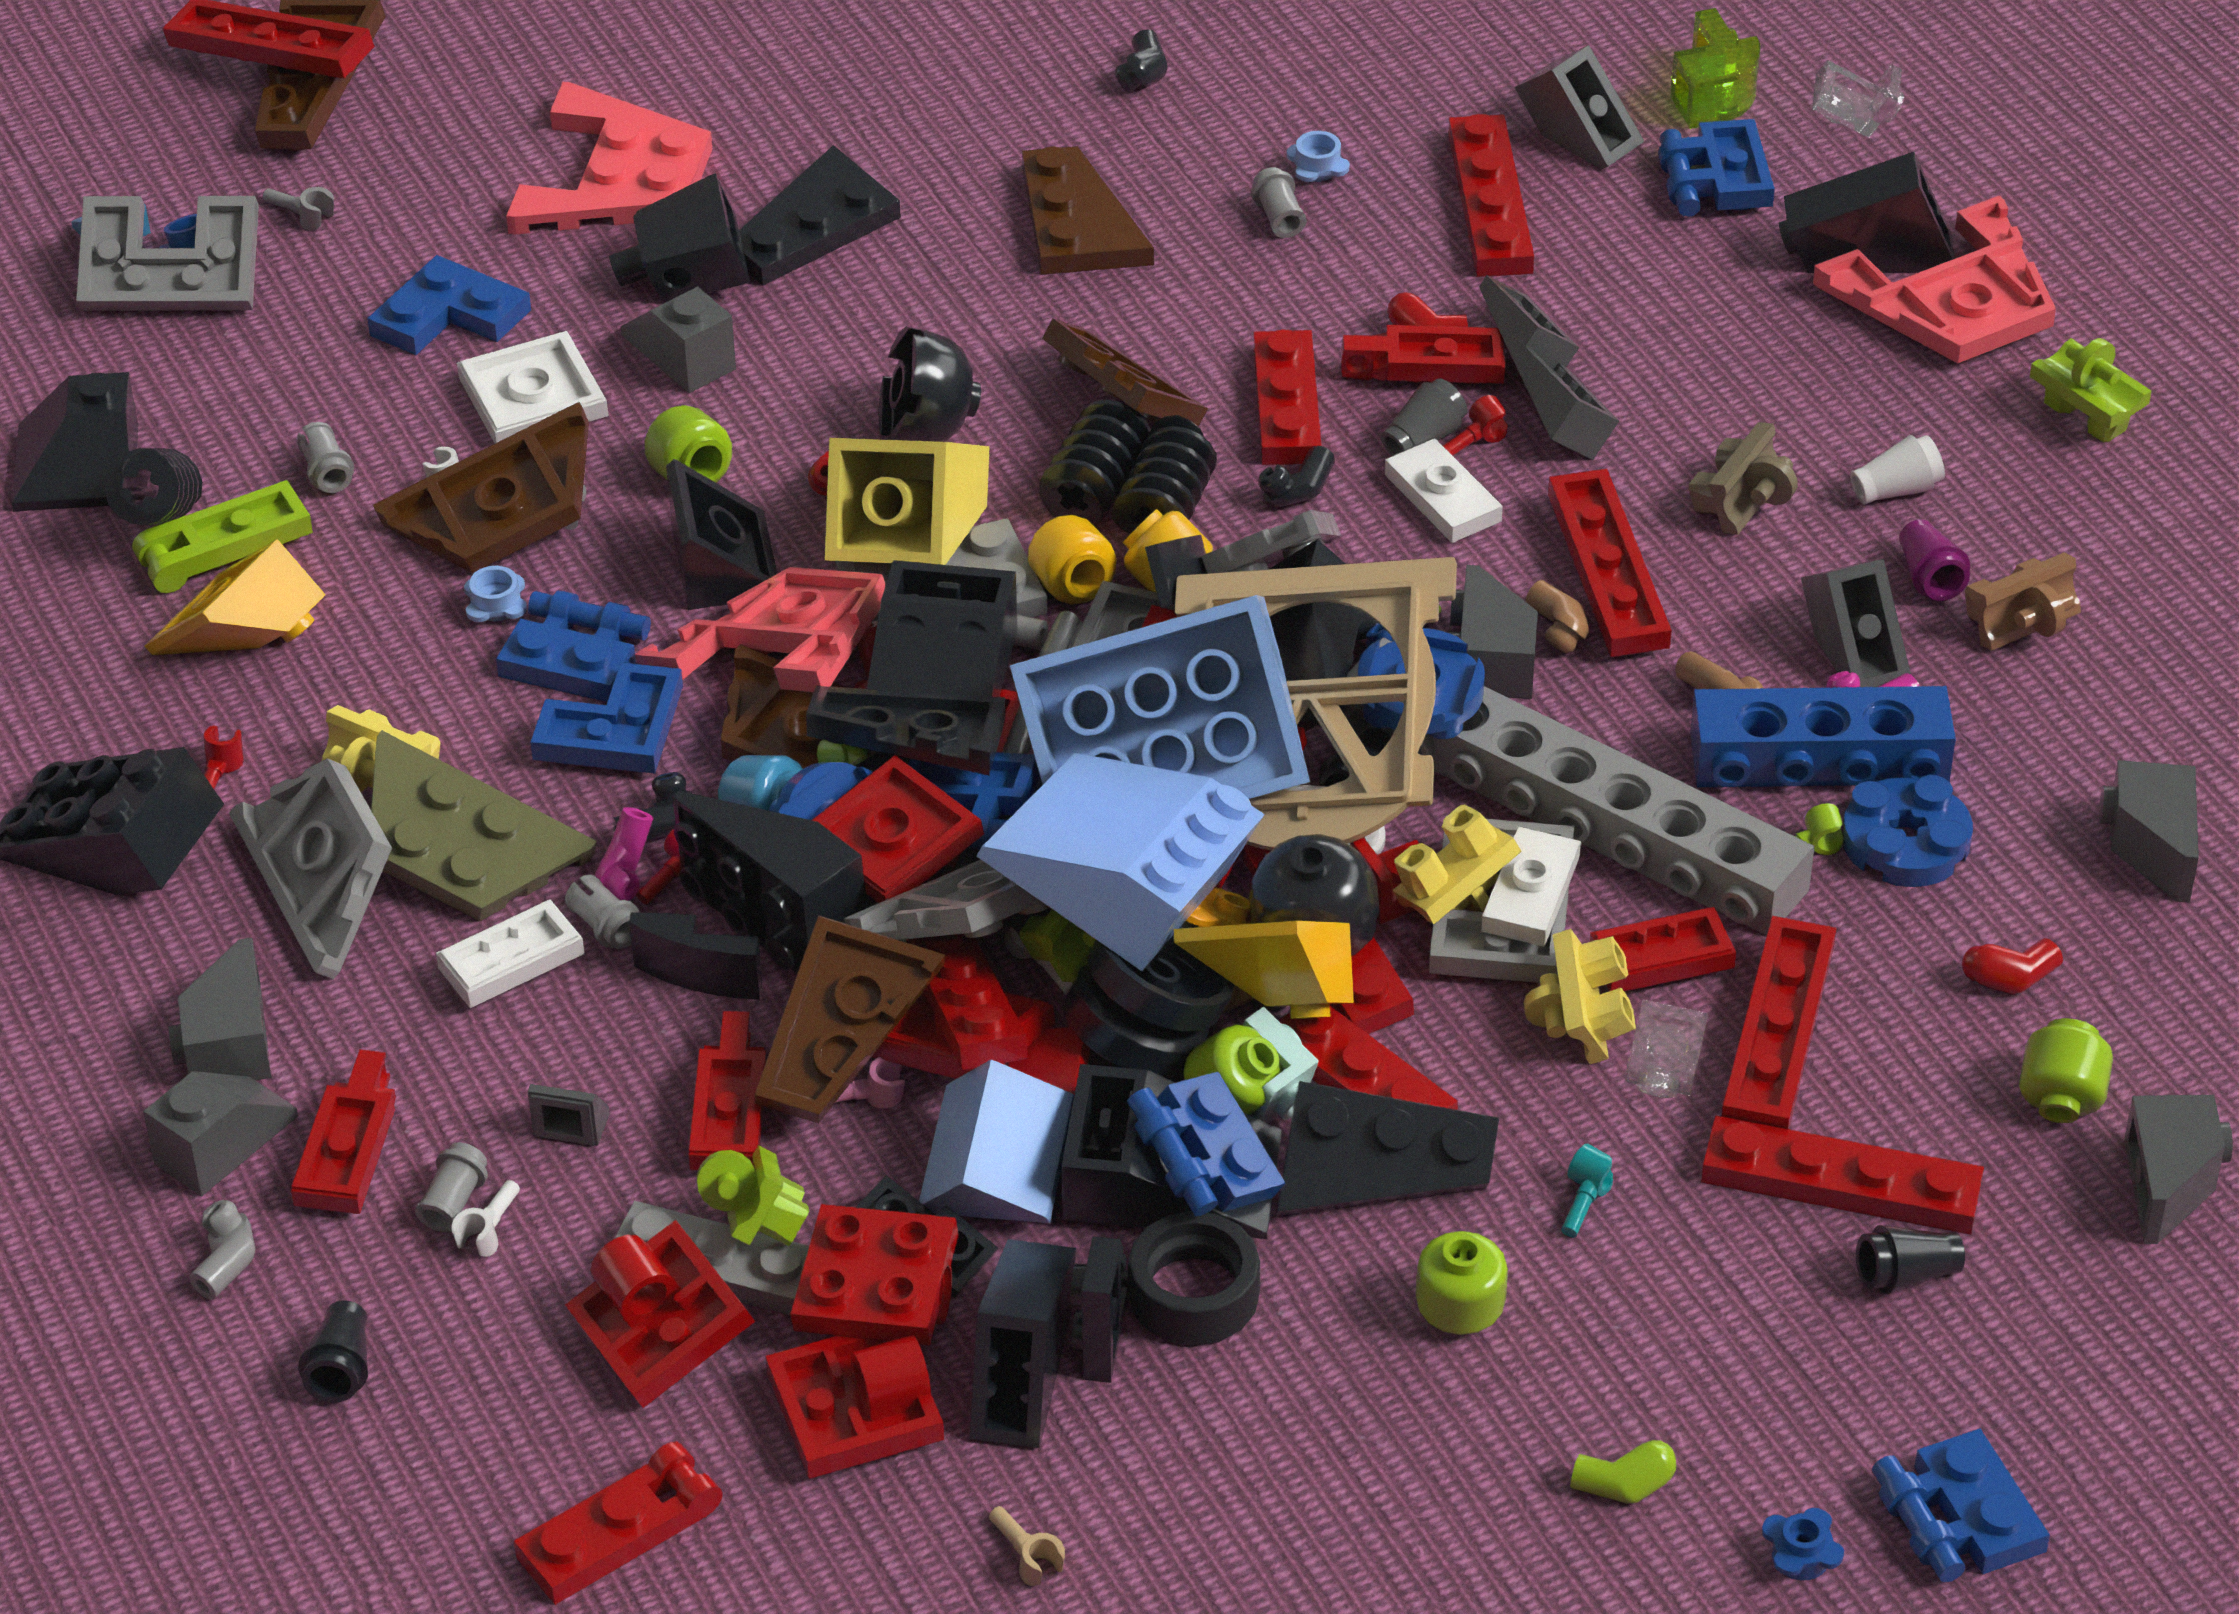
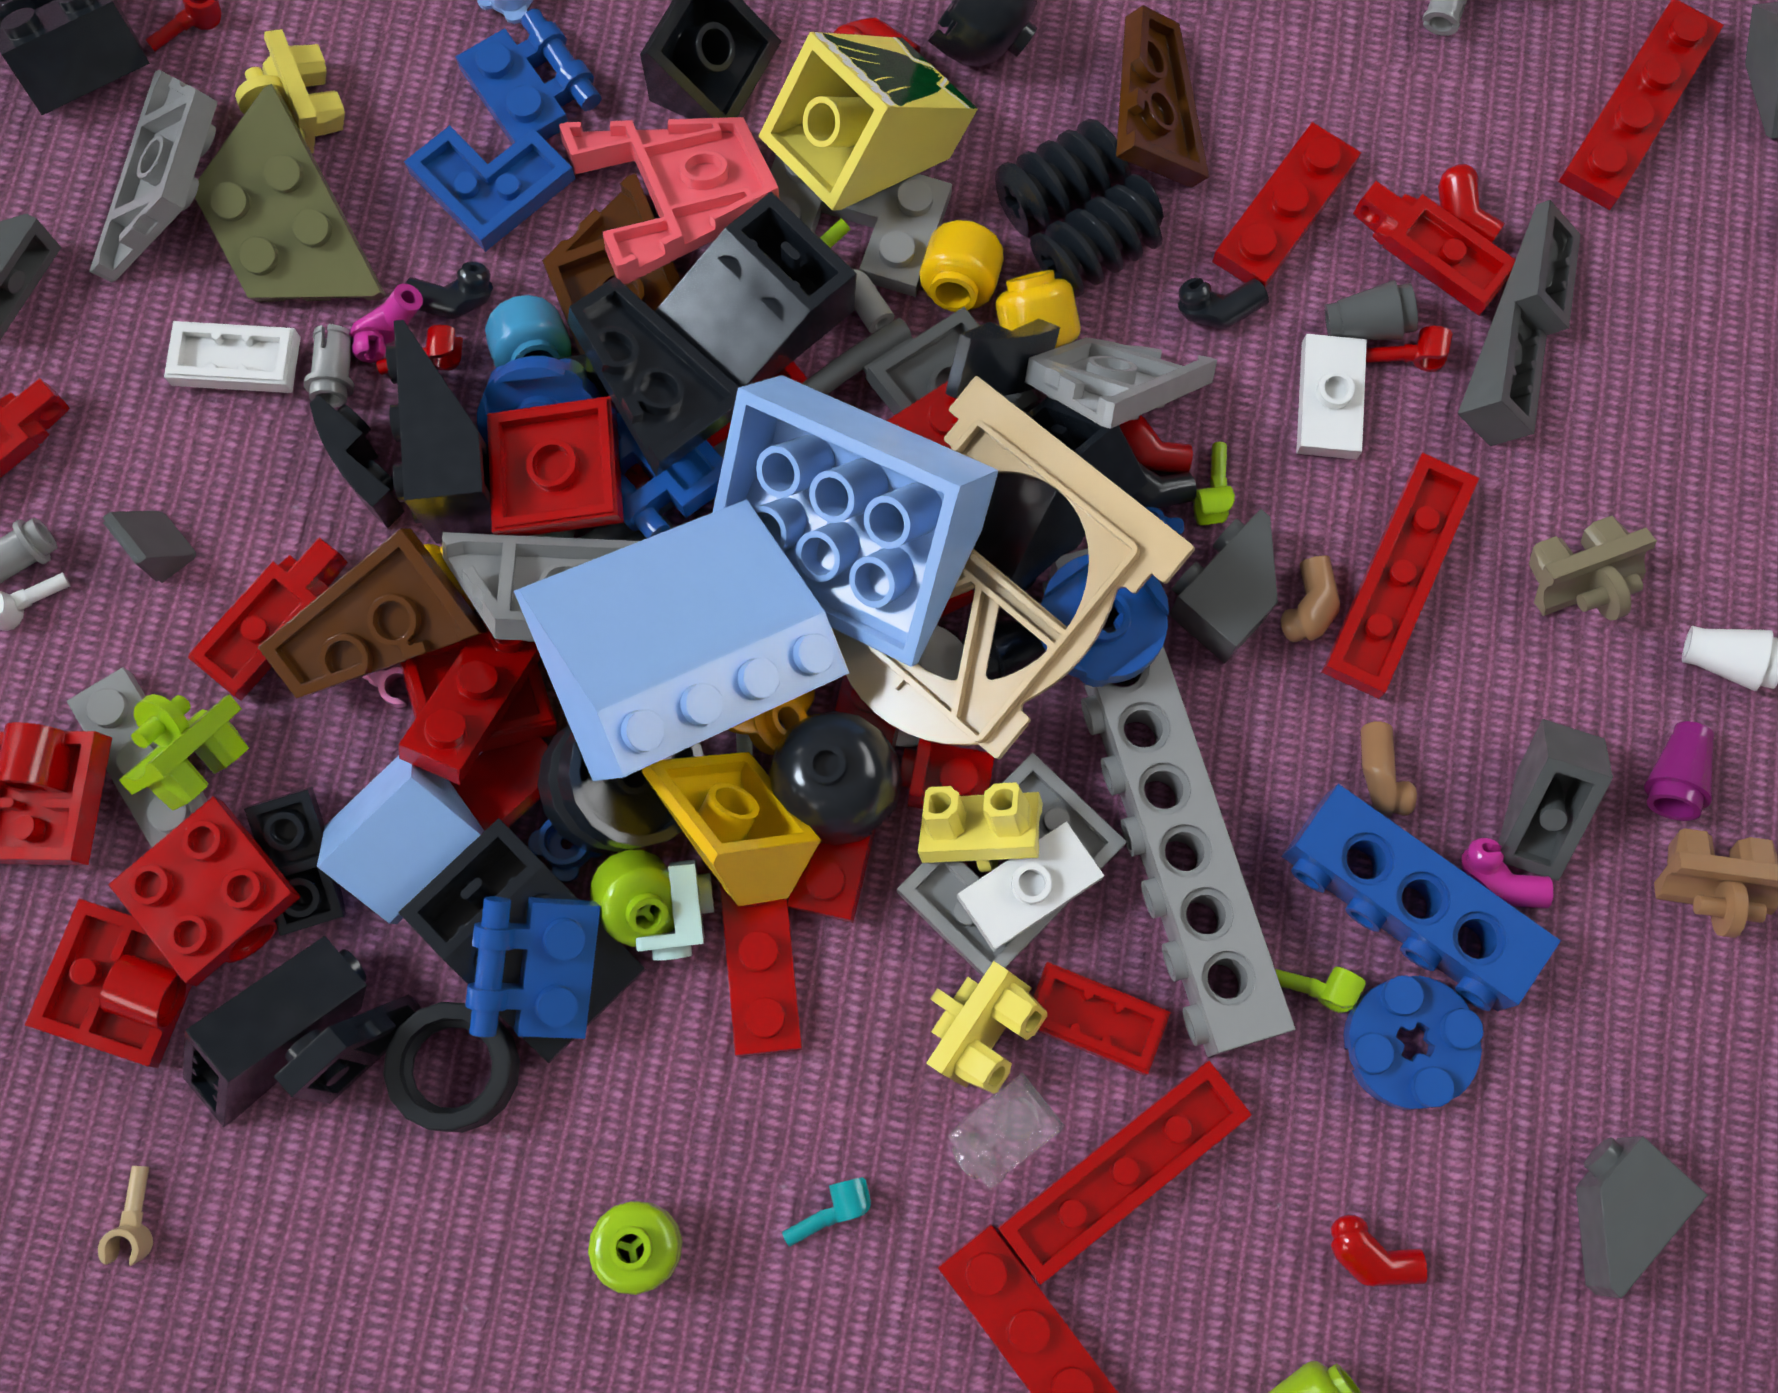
camera: 35 degrees right, 30 degrees up
(1378, 1148) = (694, 1055): black wing -> none

